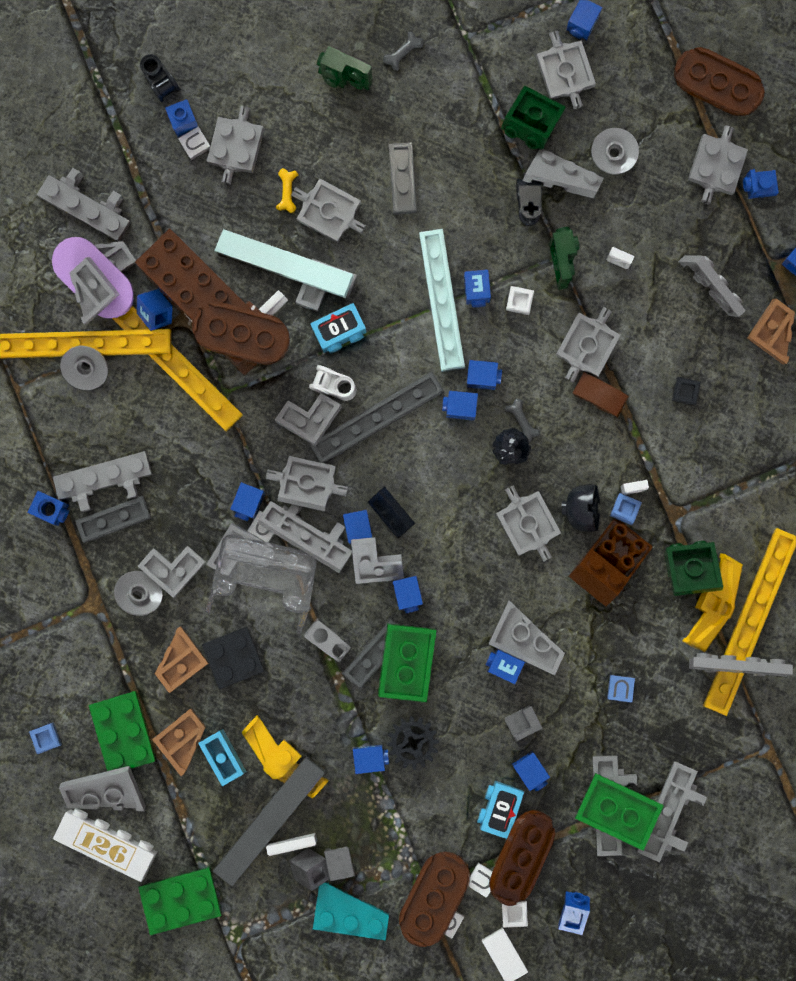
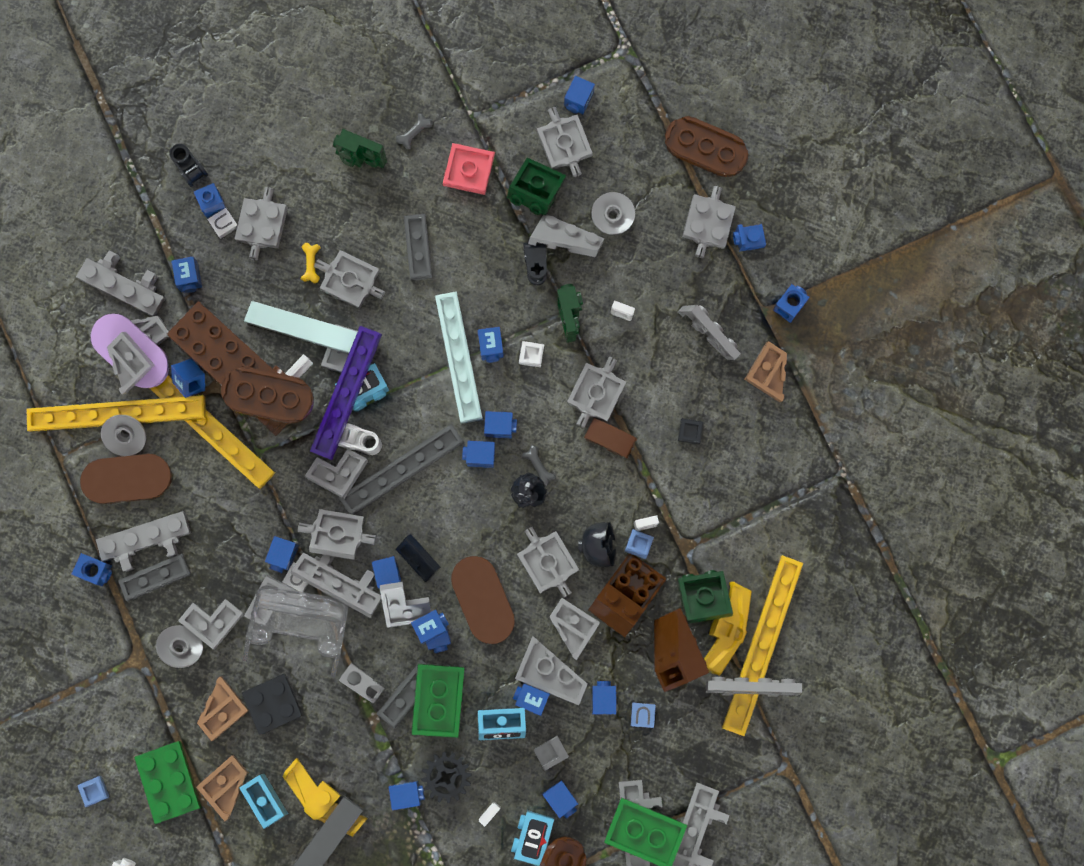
camera: 10 degrees left, 5 degrees down
(85, 414) = (125, 478): none -> reddish brown tile
(105, 789) = (151, 838): light grey wing -> none
(155, 197) = (187, 274): none -> blue brick
(322, 333) = (346, 392): none -> dark purple tile
(403, 585) = (430, 626): none -> blue brick
(456, 782) = (489, 813): none -> white tile
(457, 559) = (482, 600): none -> reddish brown tile
(461, 95) = (468, 169): none -> coral plate
(473, 690) = (501, 724): none -> medium azure brick
(552, 592) = (573, 626): none -> light grey wing
(581, 669) = (603, 698): none -> blue brick
(660, 625) = (676, 651): none -> reddish brown slope

